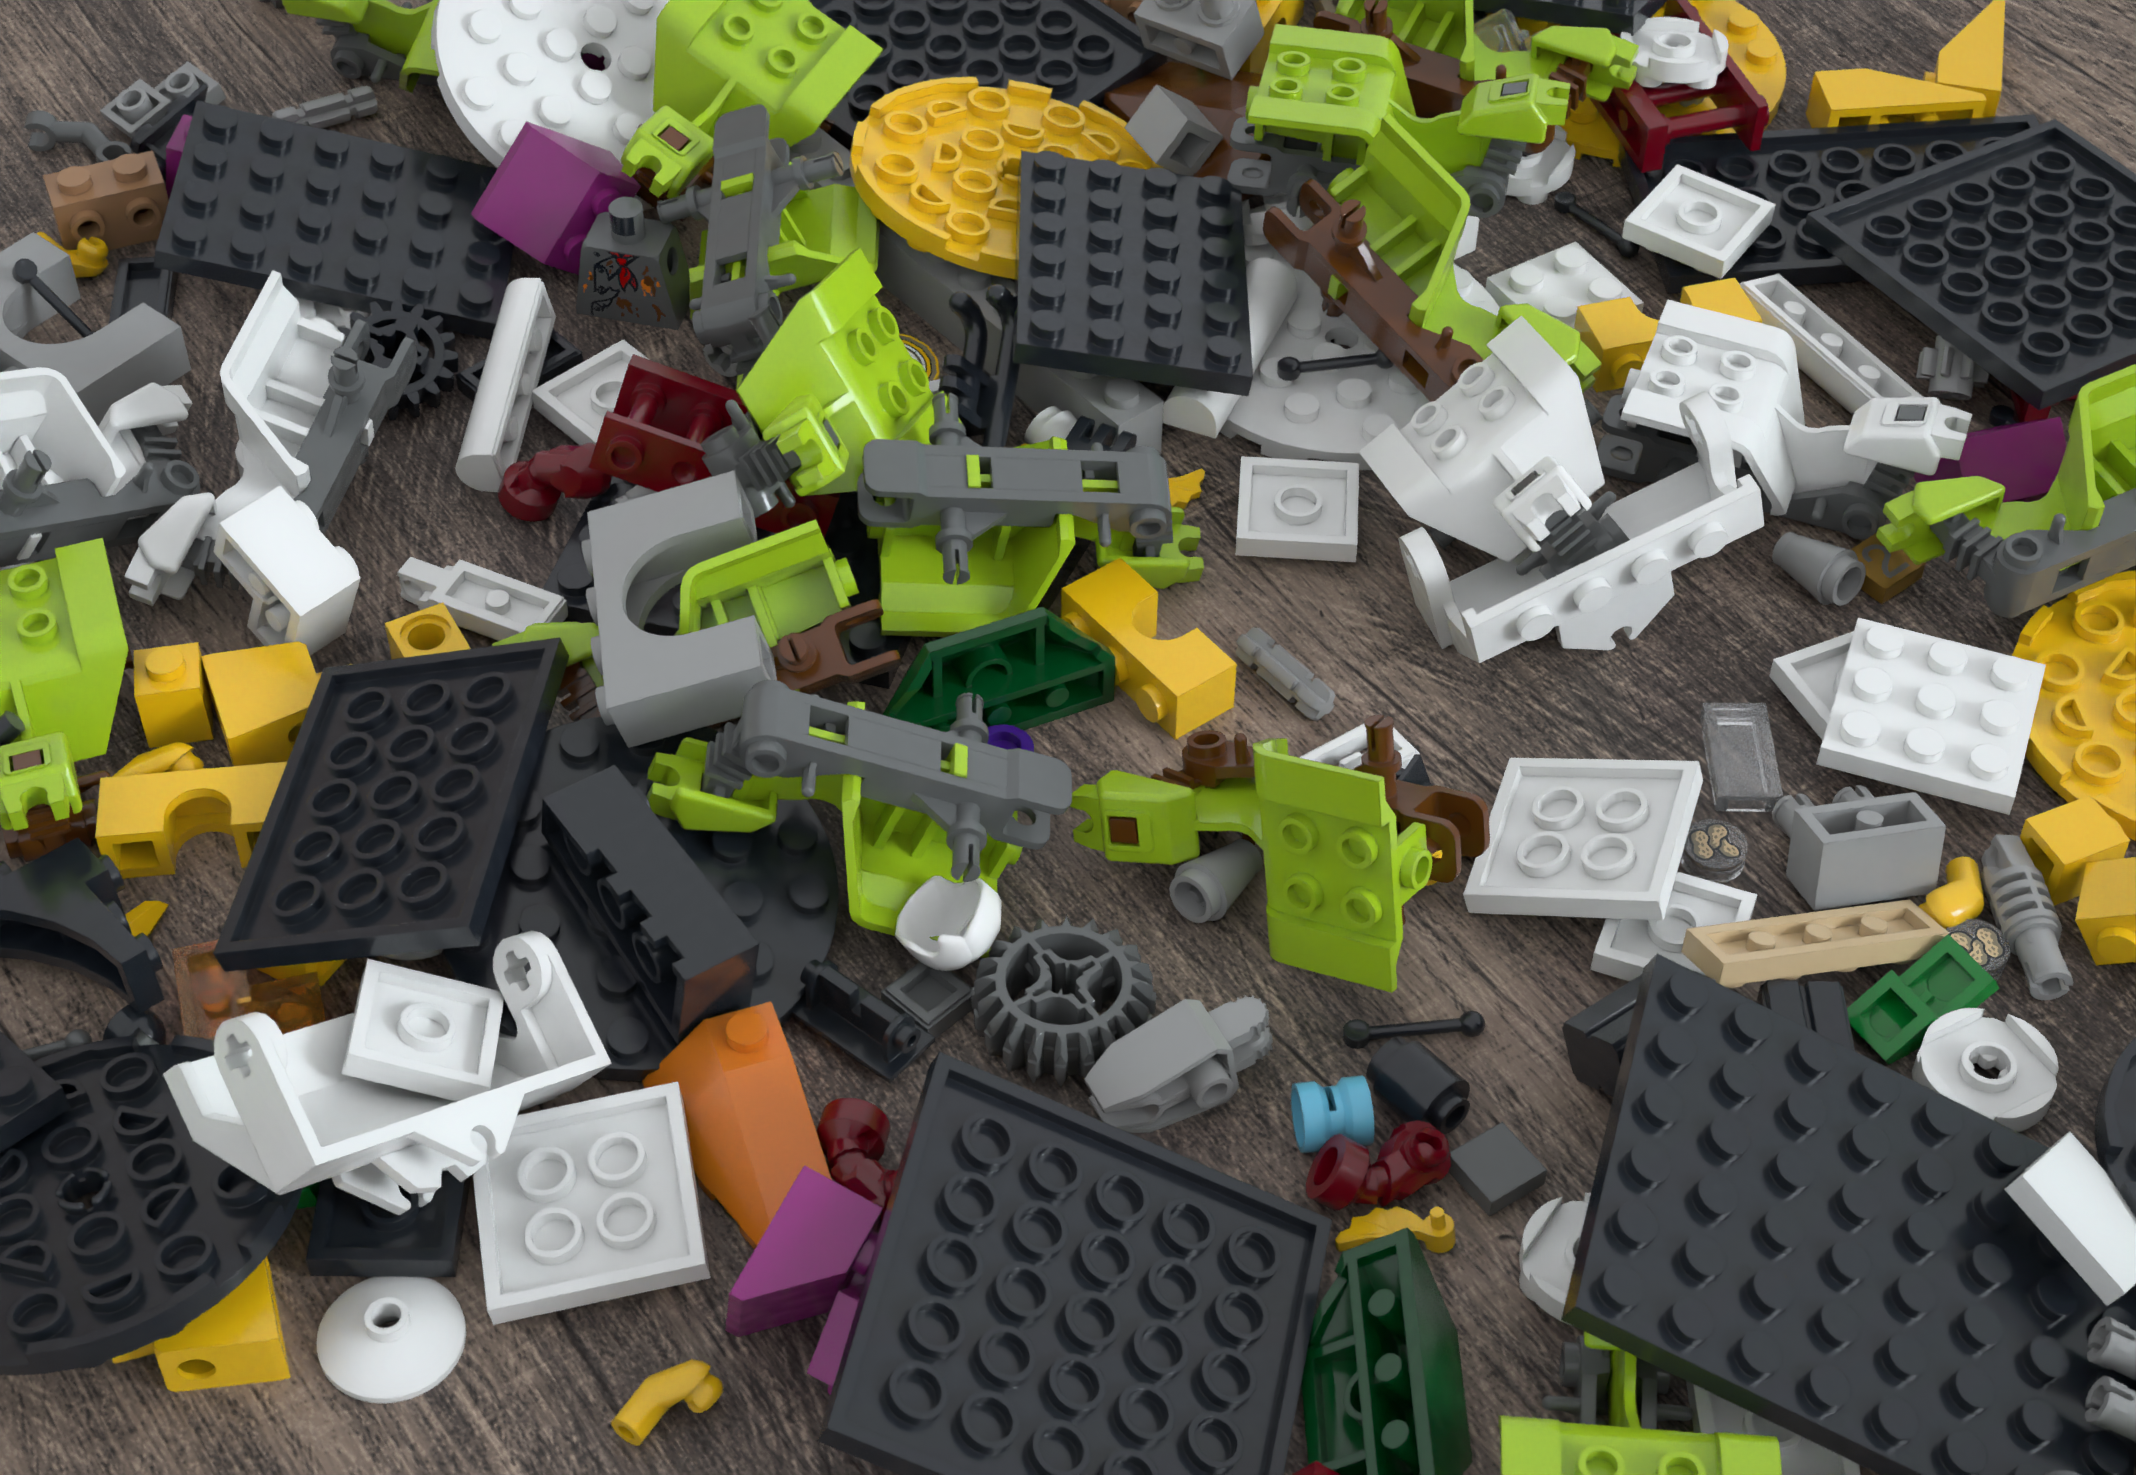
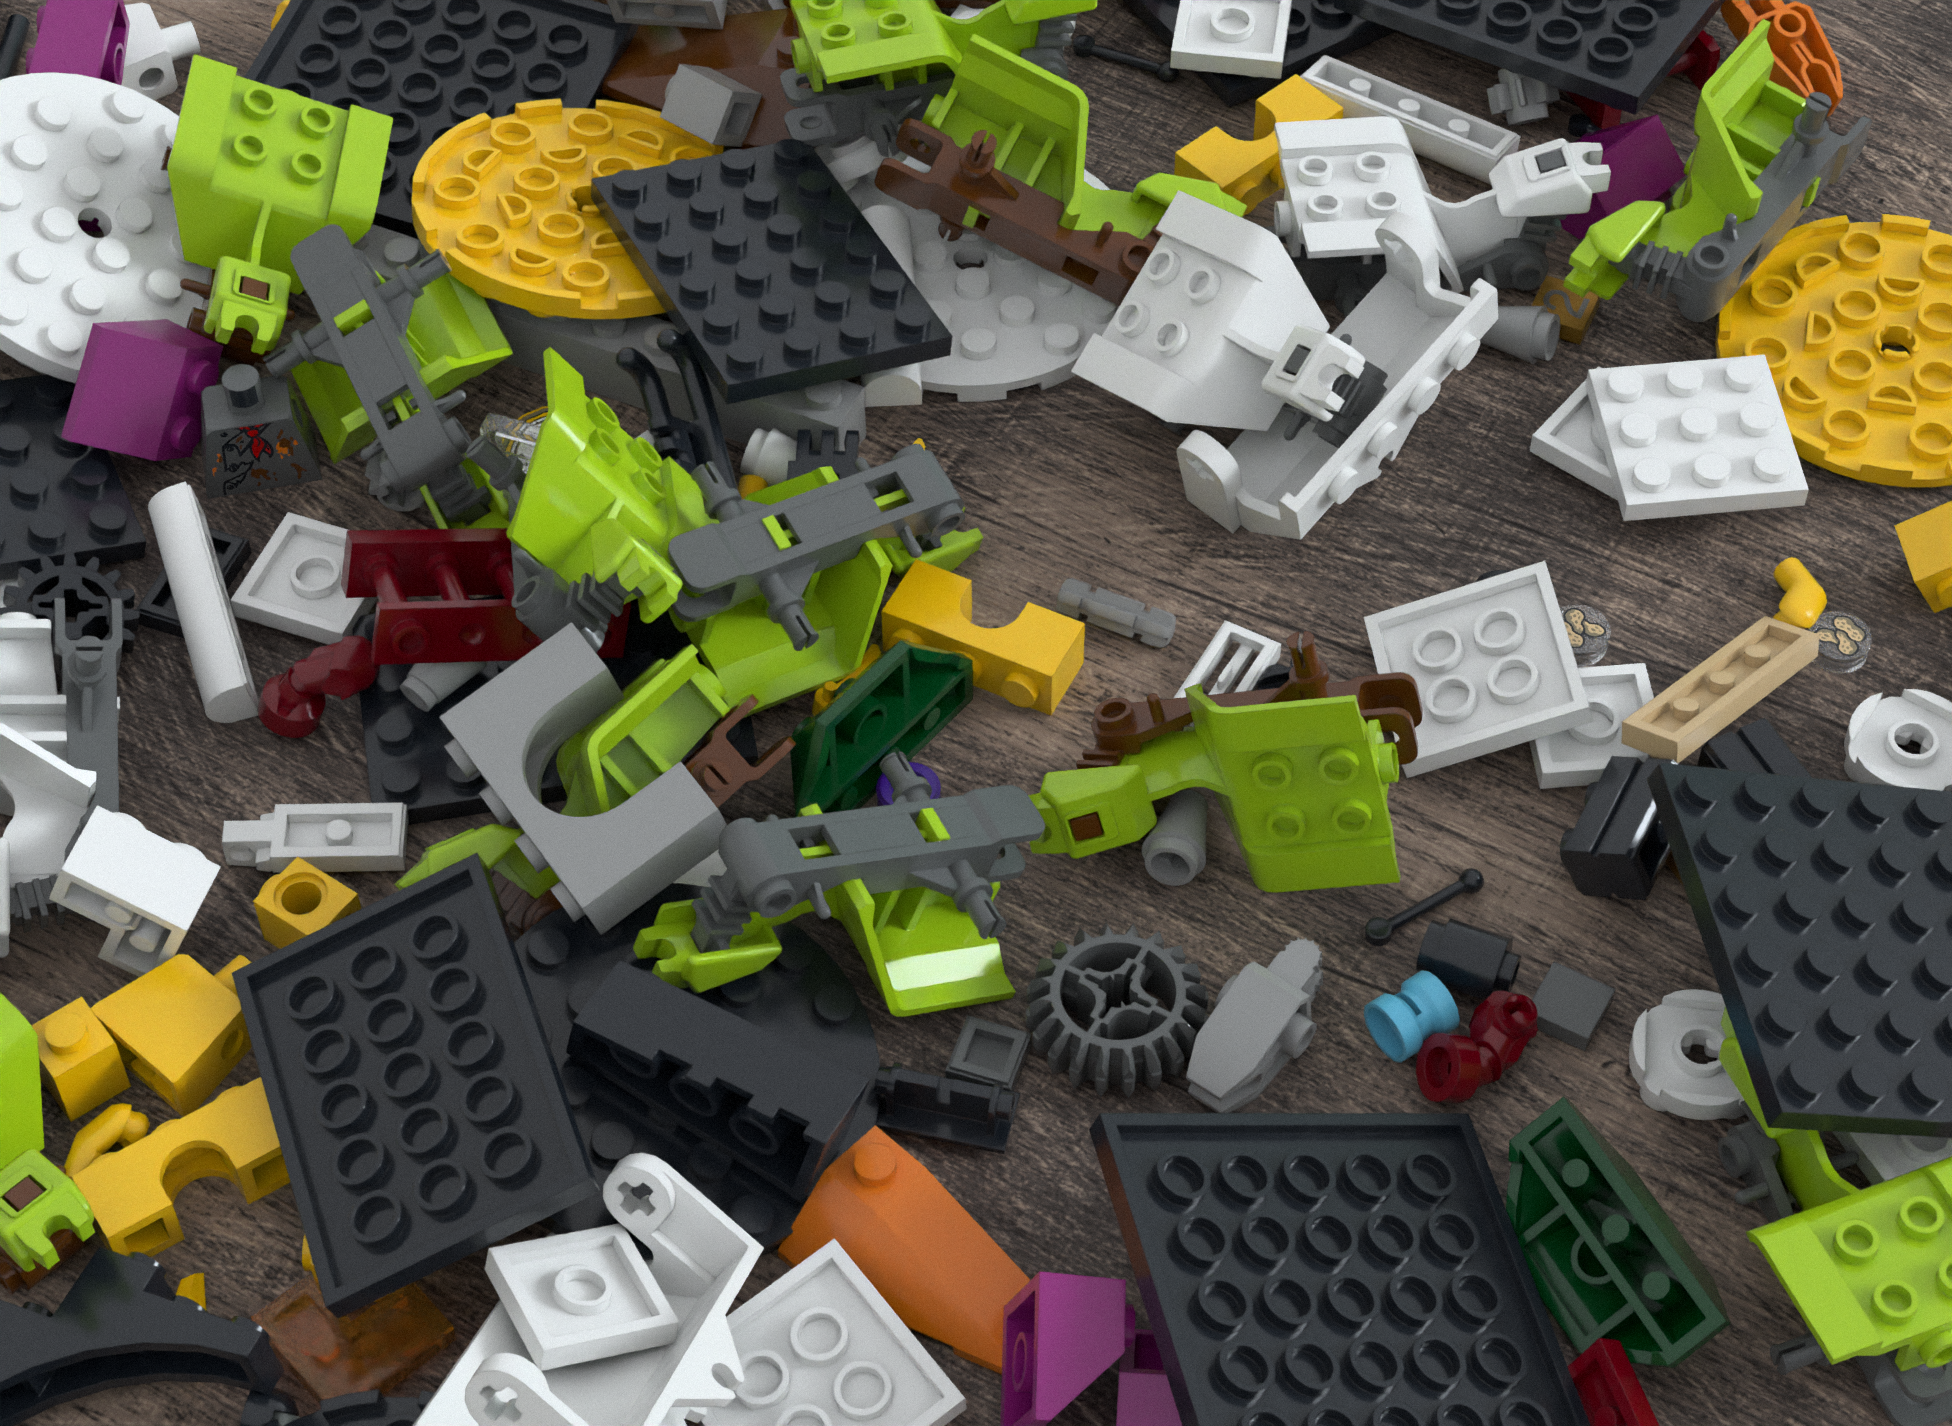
camera: 25 degrees left, 5 degrees up
(854, 1140) = (1014, 1220): dark red arm -> none
(959, 913) = (991, 969): white hair -> none
(1290, 367) = (949, 308): black hinge -> none
(1298, 509) = (1033, 446): white plate -> none
(1435, 1230) = (1516, 1093): yellow piece -> none
(1558, 283) = (1138, 138): white plate -> none
(1740, 756) = (1550, 533): clear tile -> none
(1860, 847) = (1702, 584): light grey brick -> none
(1901, 1008) = (1824, 702): green slope -> none
(2025, 915) = (1862, 590): light grey hinge -> none
(2067, 839) = (1863, 518): yellow brick -> none

